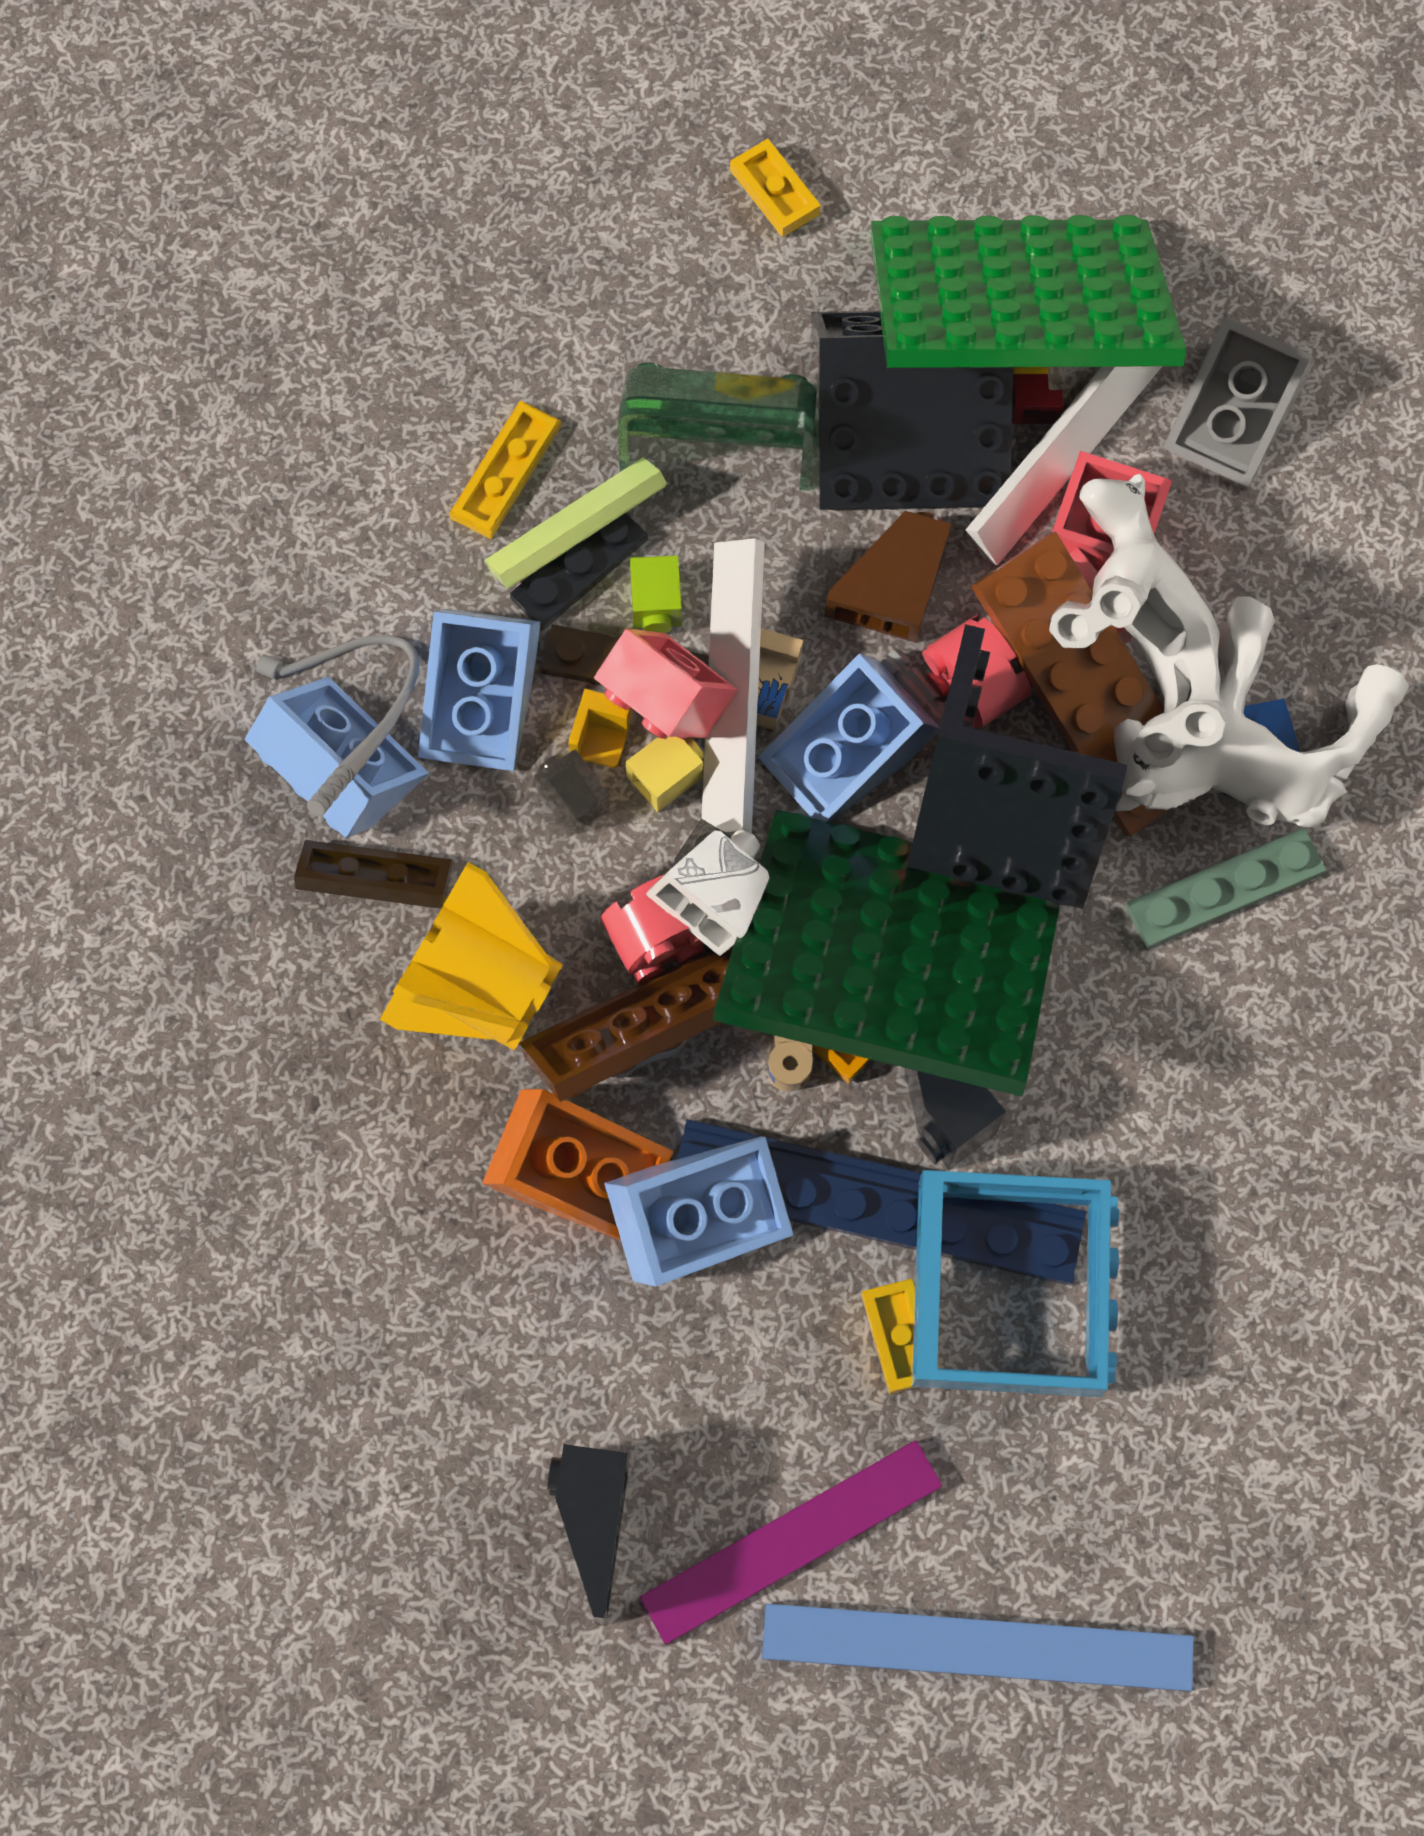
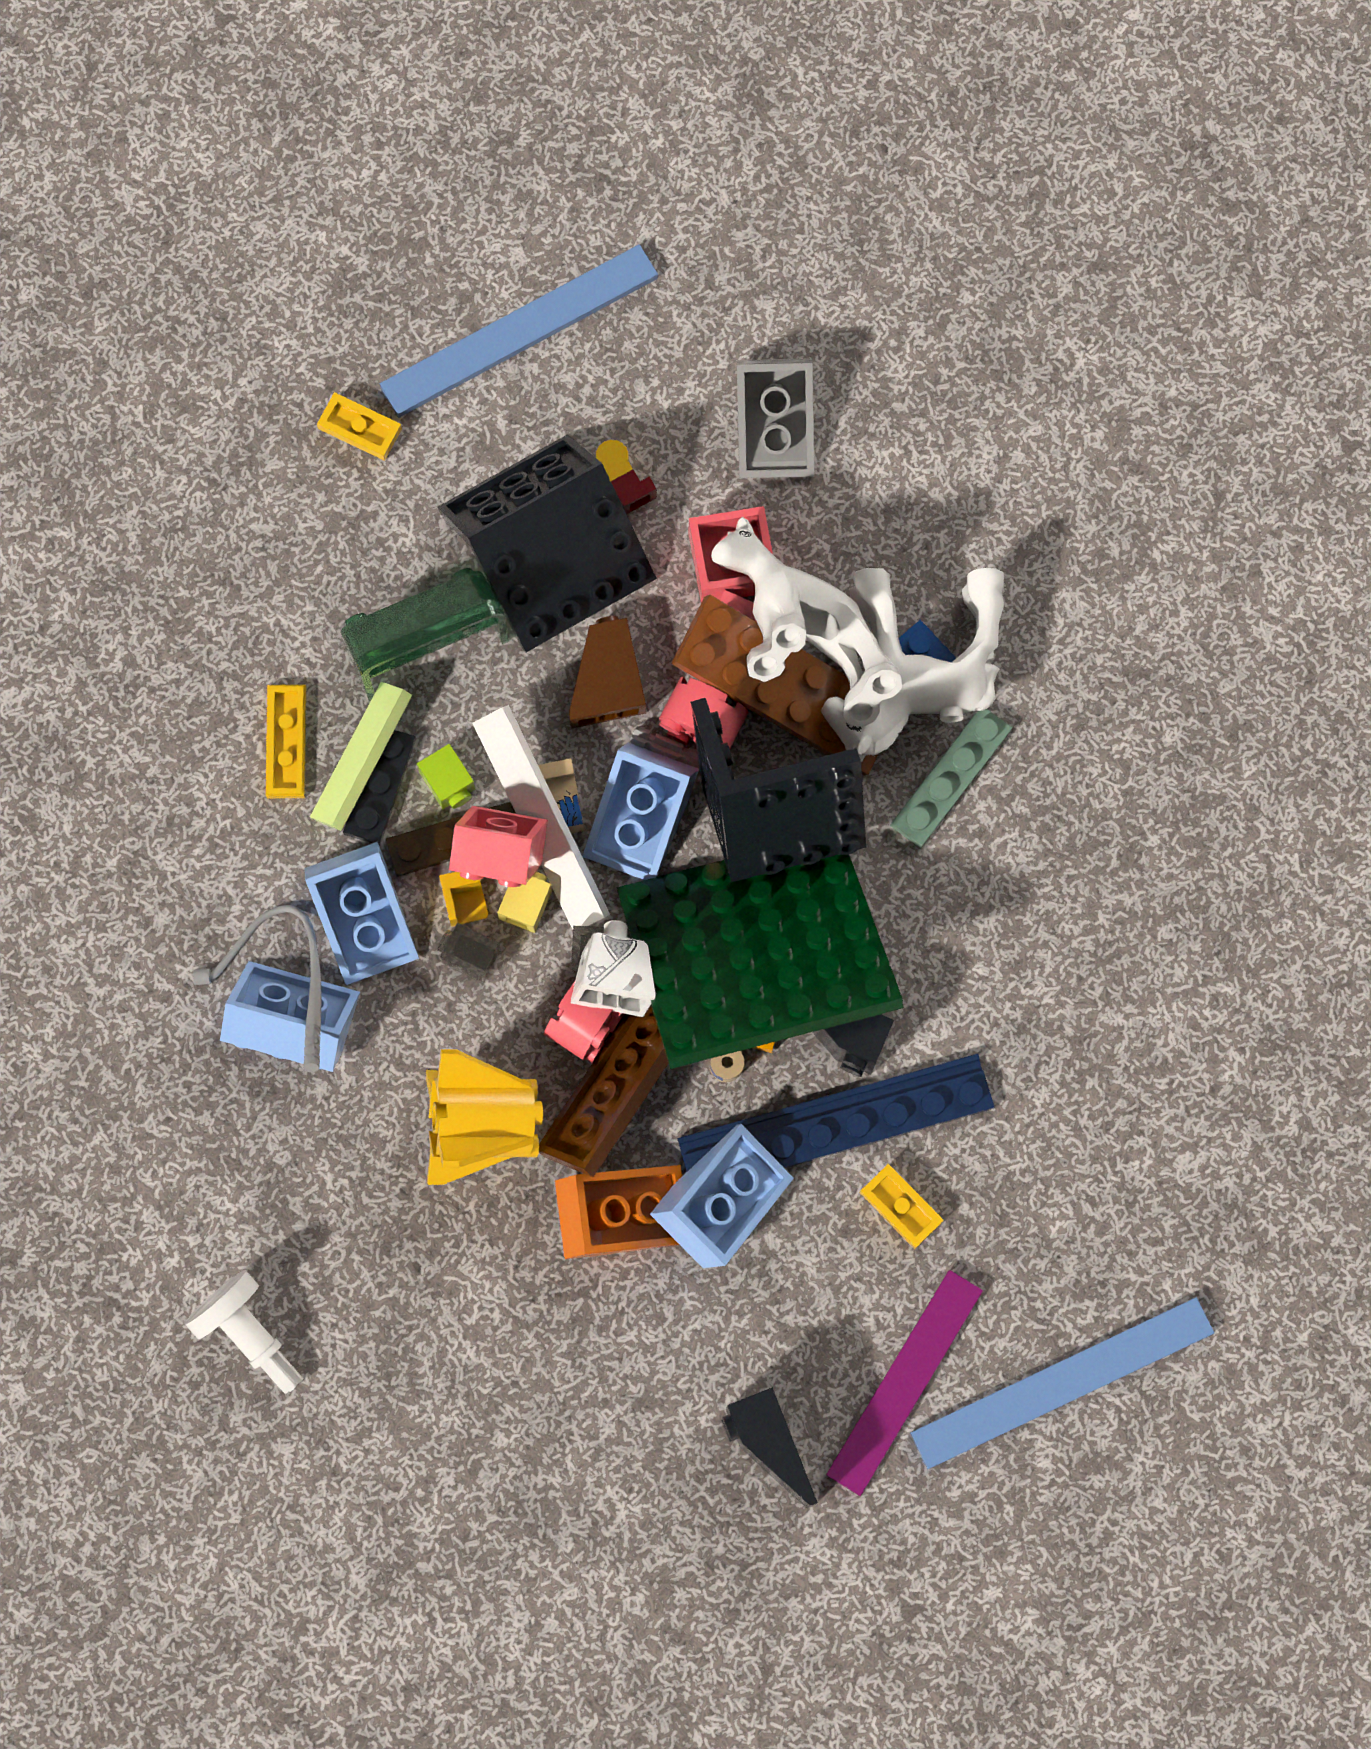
camera: 30 degrees left, 5 degrees up
(82, 1065) = (227, 1310): none -> white piece
(373, 874) = (365, 1086): dark brown plate -> none
(1005, 177) = (518, 331): none -> medium blue tile
(1023, 293) = (587, 424): green plate -> none
(1054, 458) = (672, 514): white tile -> none
(1101, 1267) = (1009, 1086): dark azure window -> none

